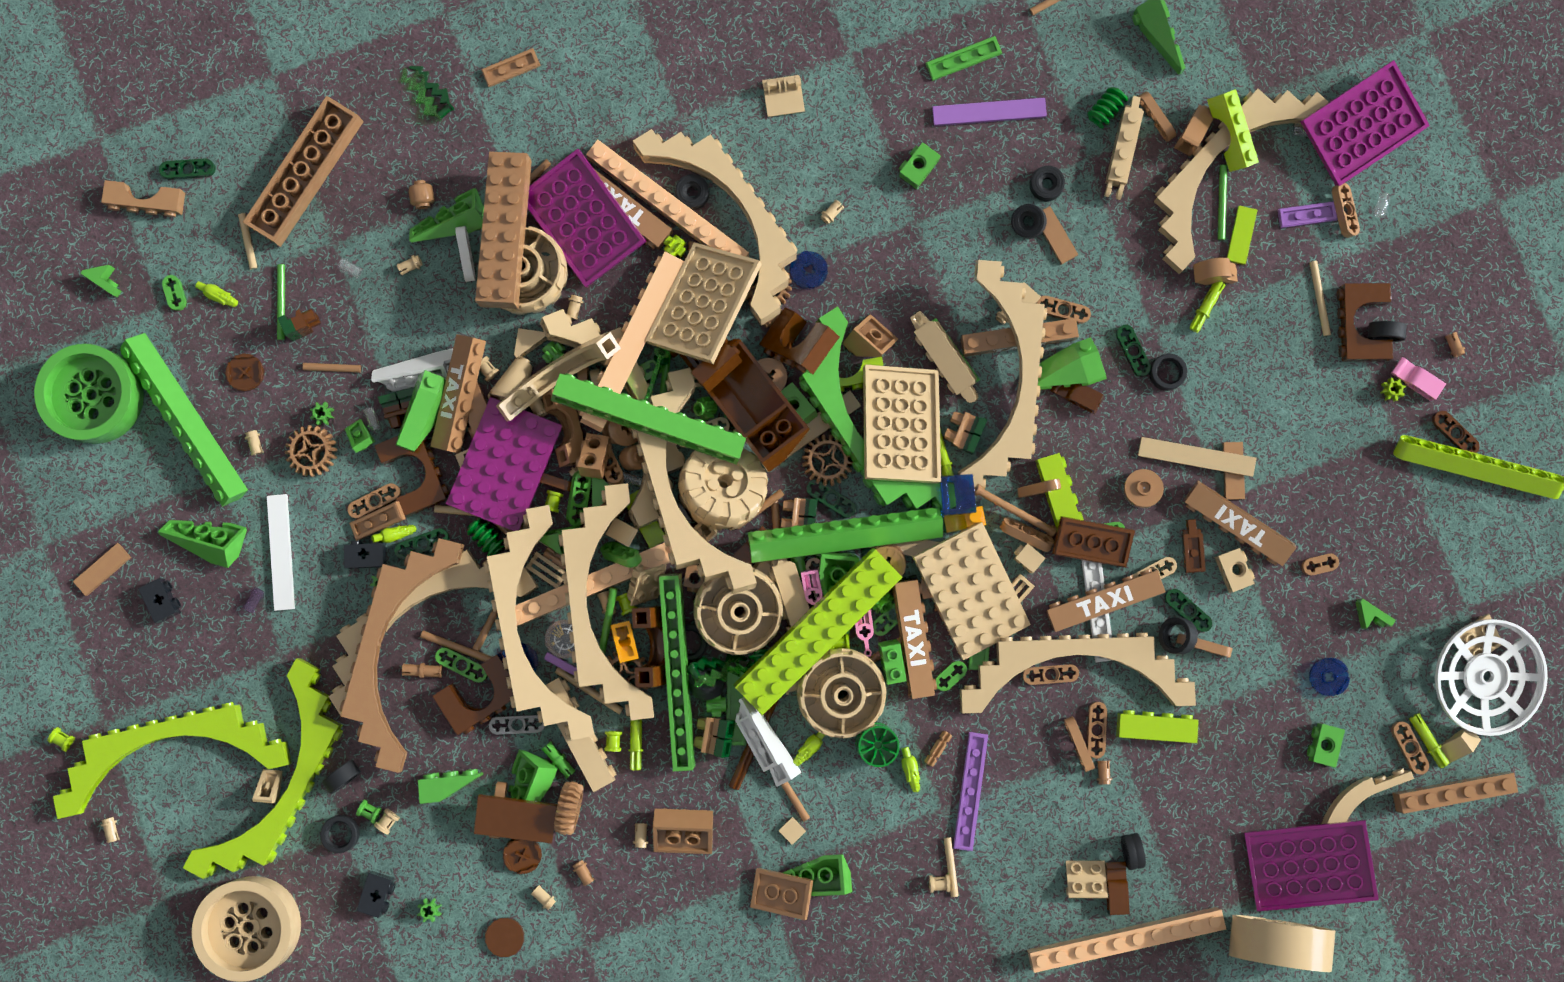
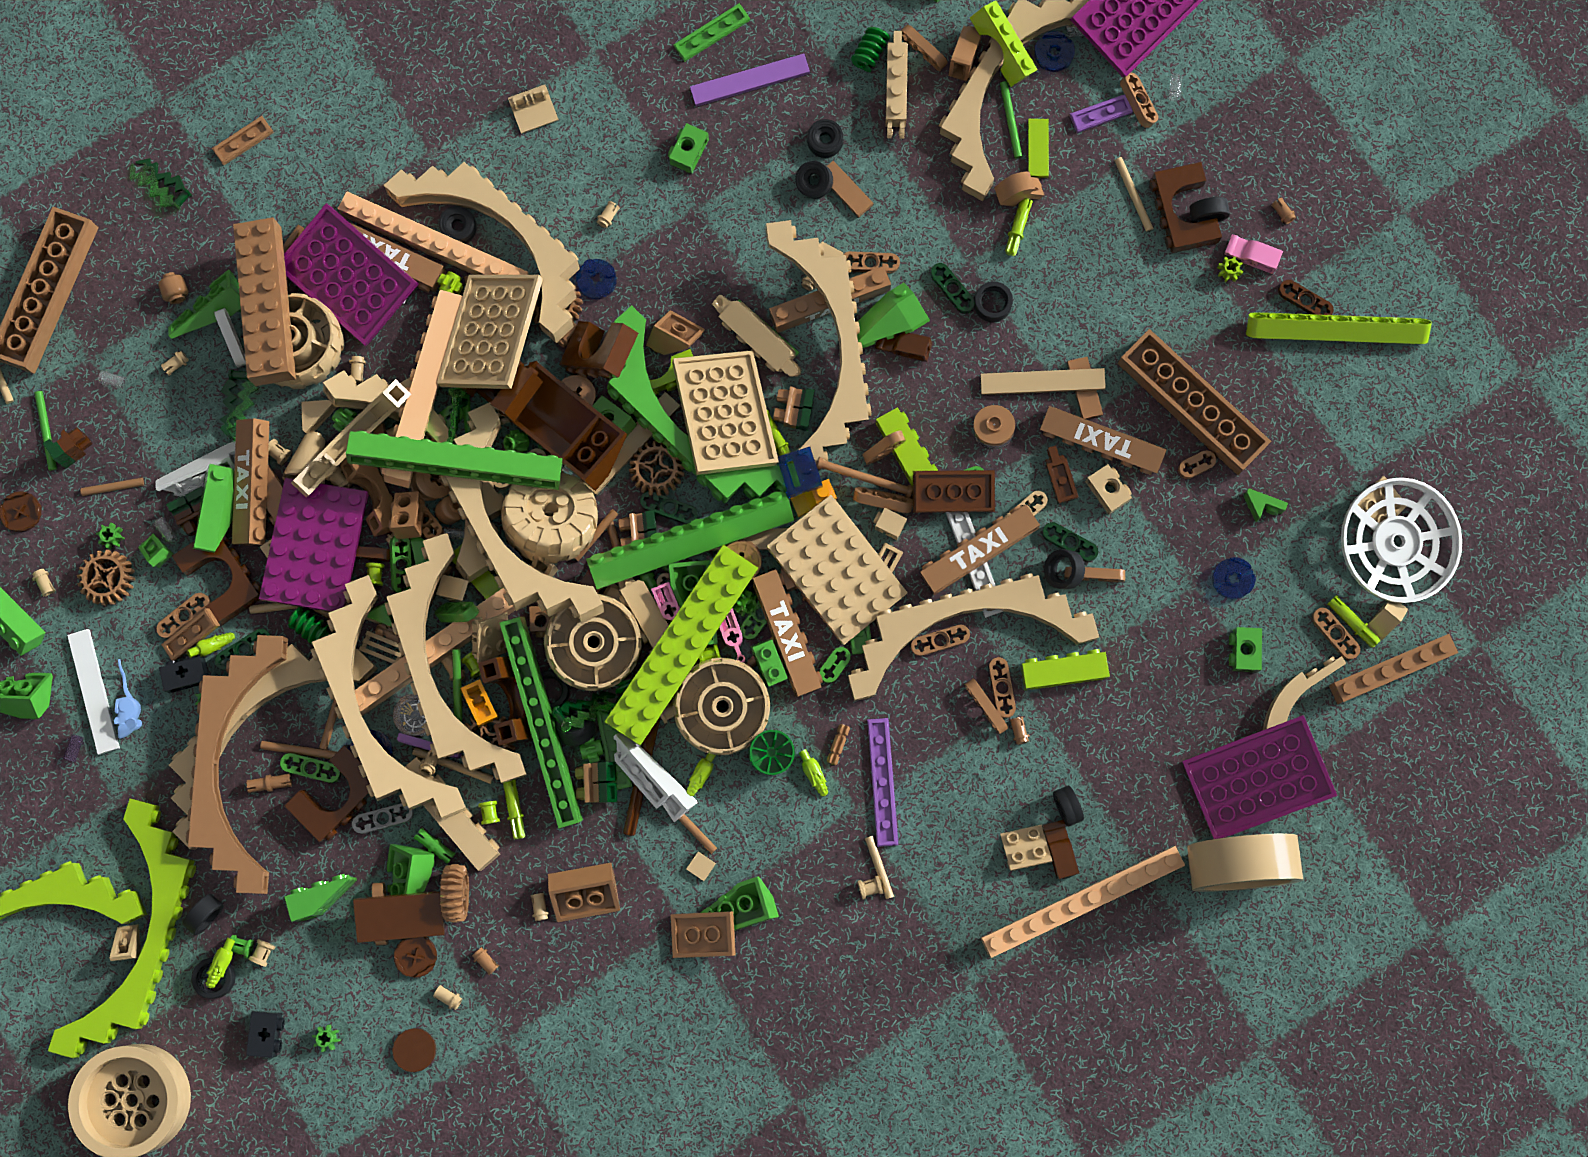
camera: 10 degrees left, 5 degrees down
(308, 577) = (127, 710): none -> light blue animal
(348, 824) = (220, 963): none -> lime piece
(457, 323) = (236, 411): none -> piece
(567, 689) = (427, 768): none -> tan pin
(1286, 141) = (1057, 62): none -> clear blue plate
(1331, 507) = (1193, 402): none -> medium nougat brick

